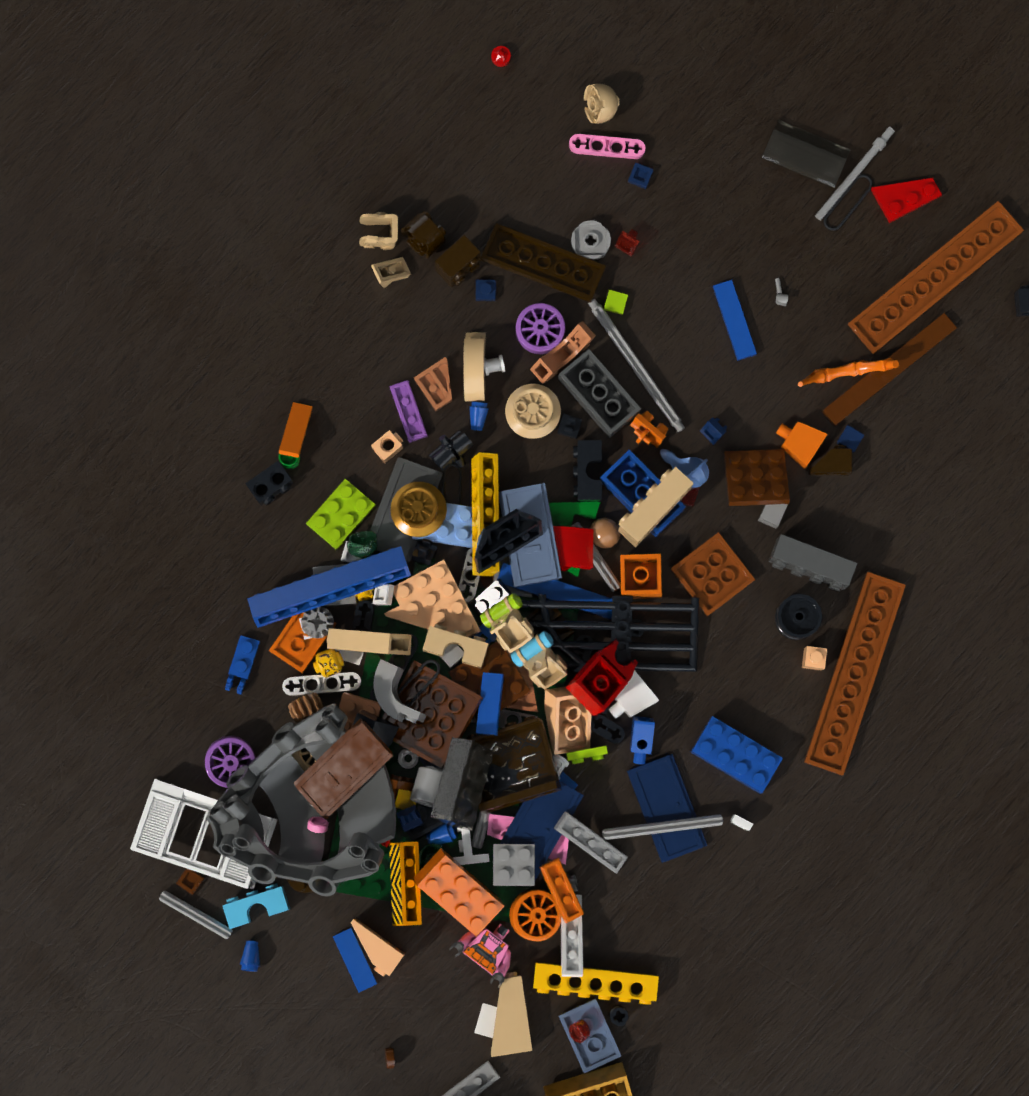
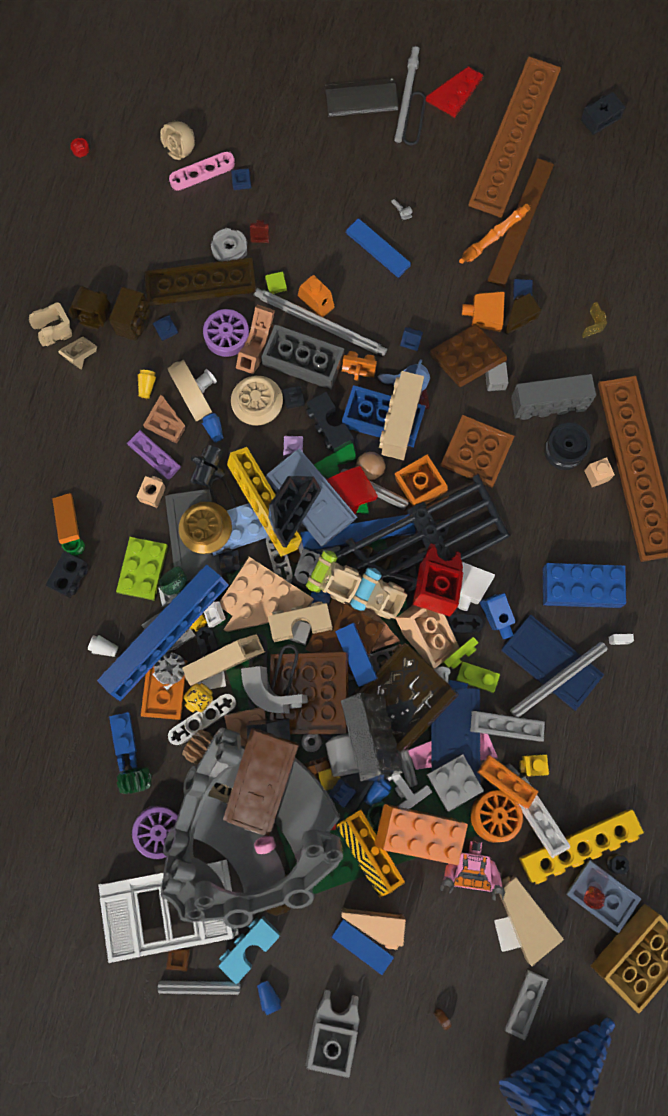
camera: 25 degrees left, 5 degrees down
(233, 705) = (134, 780): none -> dark green gear
(267, 568) = (102, 646): none -> white cone
(292, 1011) = (335, 1029): none -> light grey brick
(437, 337) = (145, 383): none -> yellow cone
(542, 474) = (292, 444): none -> lavender bracket
(591, 784) = (478, 677): none -> lime plate
(595, 890) = (534, 765): none -> yellow bracket
(645, 339) = (314, 293): none -> orange torso
(906, 509) = (600, 319): none -> clear yellow bracket

